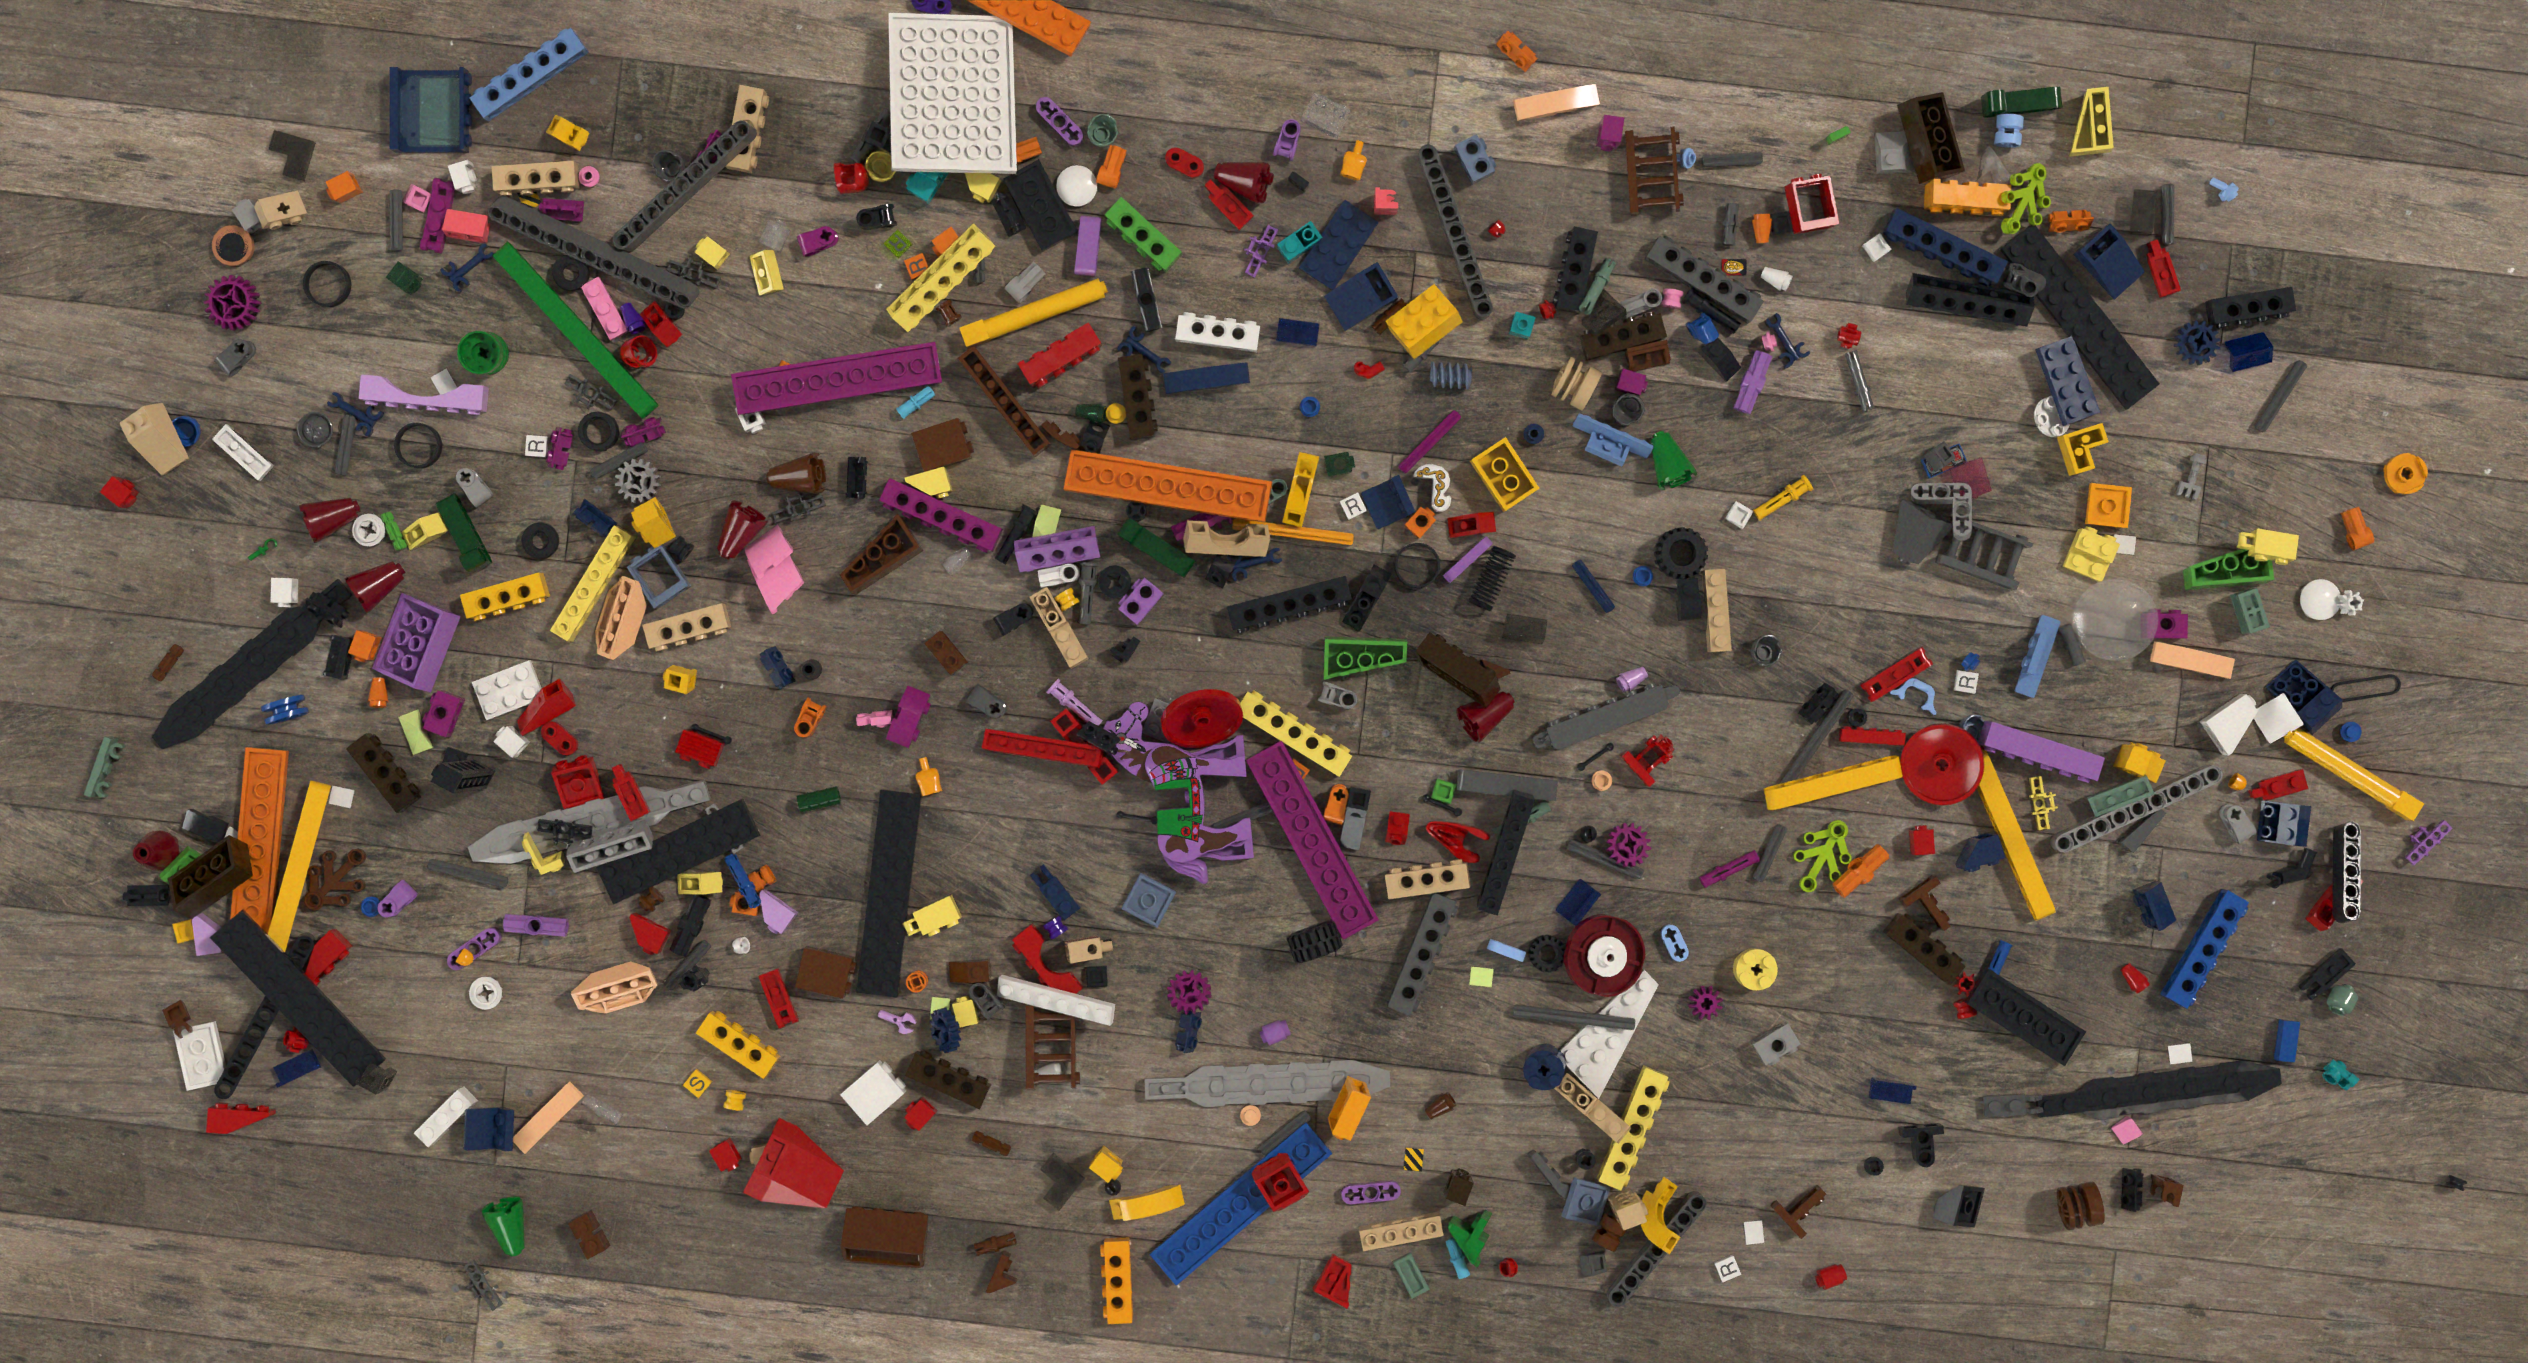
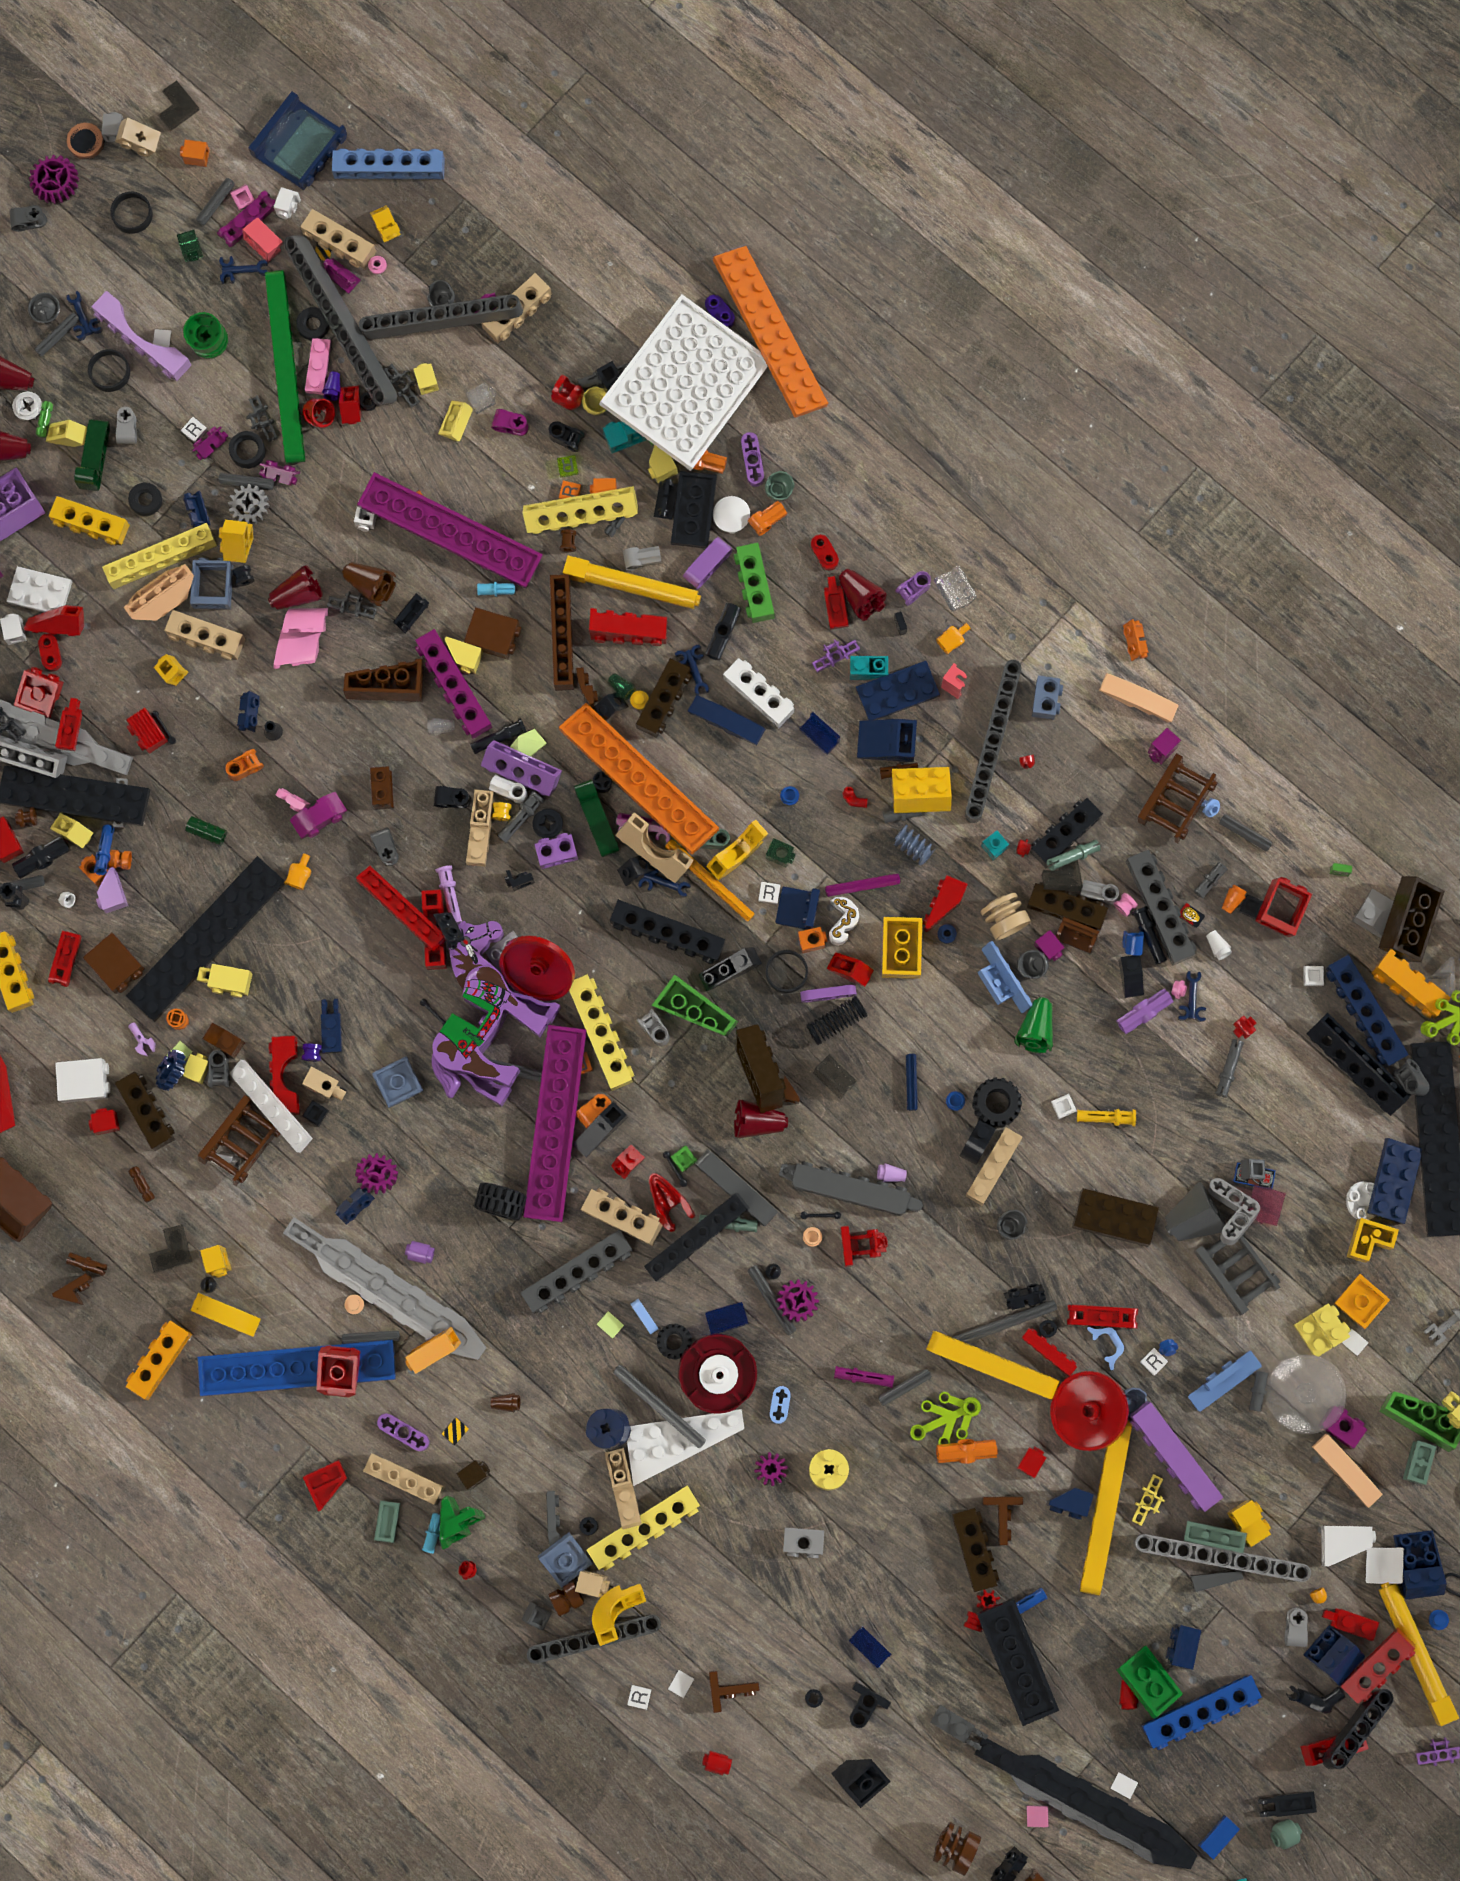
camera: 45 degrees right, 10 degrees down
(1513, 400) = (948, 899): none -> red slope
(1850, 581) = (1115, 1217): none -> dark brown brick
(2146, 955) = (1149, 1682): none -> green plate
(2329, 778) = (1396, 1640): none -> red brick

